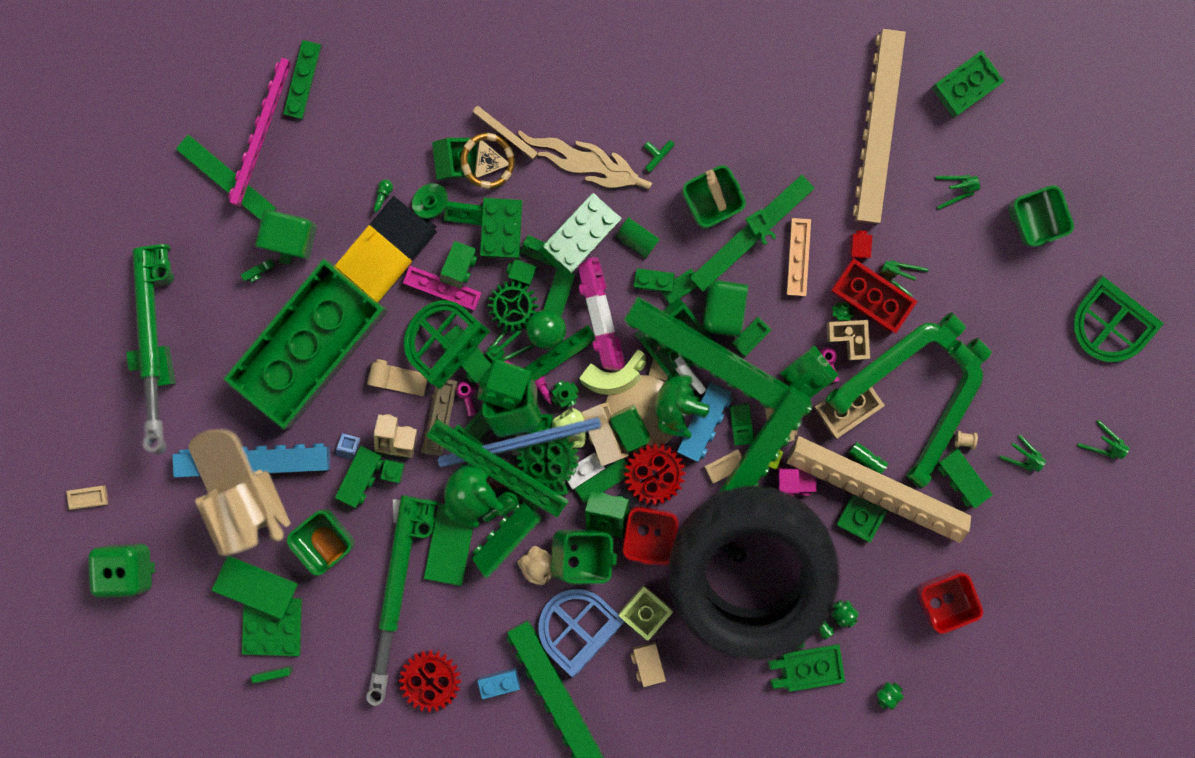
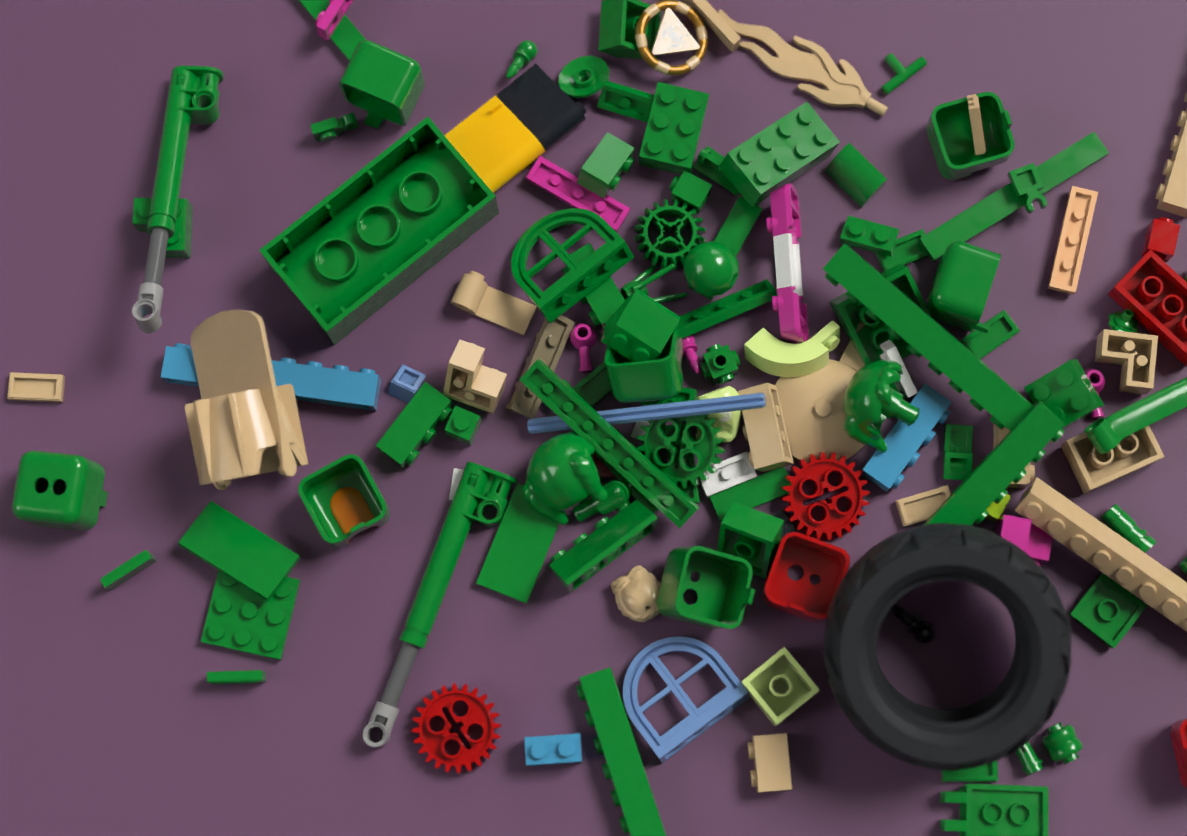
camera: 10 degrees right, 10 degrees down
(187, 608) = (128, 570): none -> green tile
(630, 428) = (802, 423): green brick -> none

